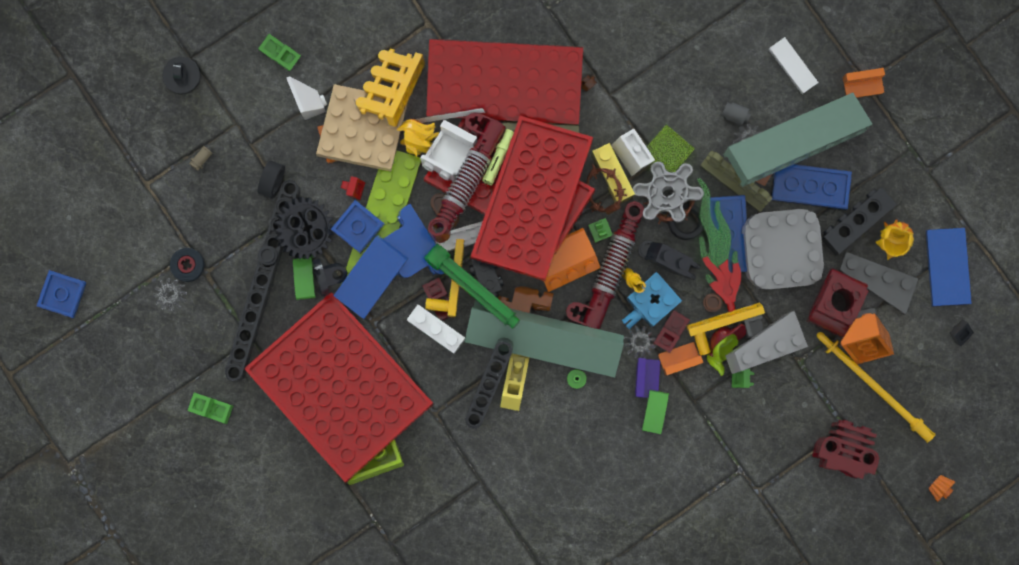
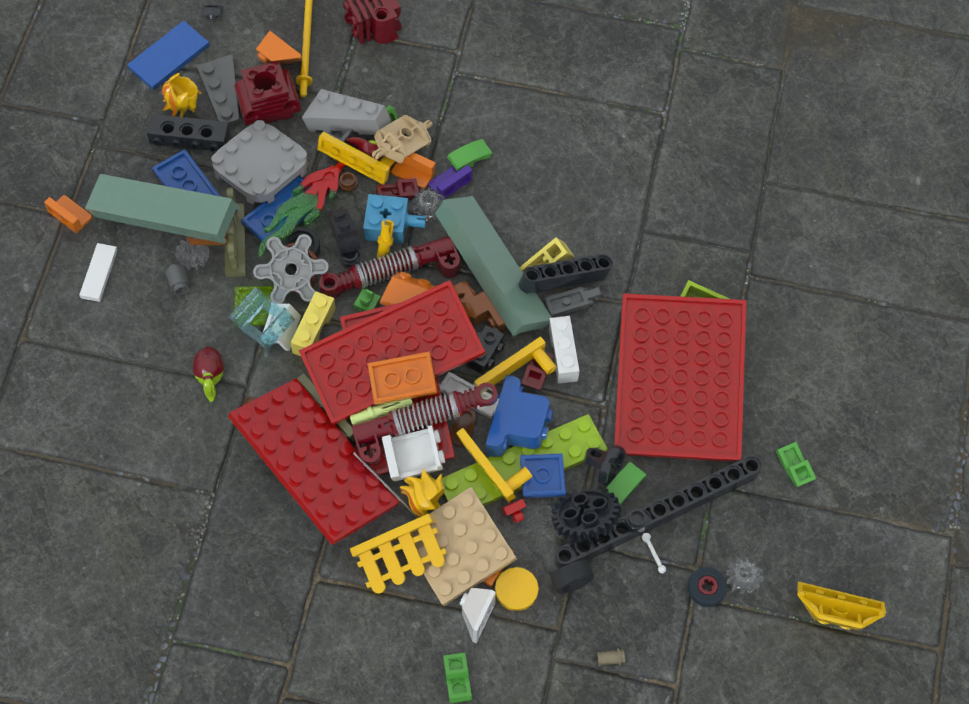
camera: 135 degrees left, 20 degrees down
(61, 294) = (835, 668): blue tile -> none
(87, 329) = (839, 607): none -> yellow wedge
(226, 247) = (646, 538): none -> white hinge
(300, 141) = (516, 589): none -> yellow tile
(370, 277) = (573, 425): blue tile -> none
(371, 190) = (505, 487): none -> yellow piece
(440, 259) = (508, 380): green piece -> none
(469, 371) = (571, 301): none -> dark grey hinge
(504, 185) = (402, 378): none -> orange tile
(574, 383) = (500, 225): bright green tile -> none
(620, 192) = (324, 297): copper piece -> none
(645, 77) = (208, 370): none -> dark red hair
(662, 133) = (250, 308): none -> clear light blue panel
(713, 355) = (396, 145): none -> tan plate

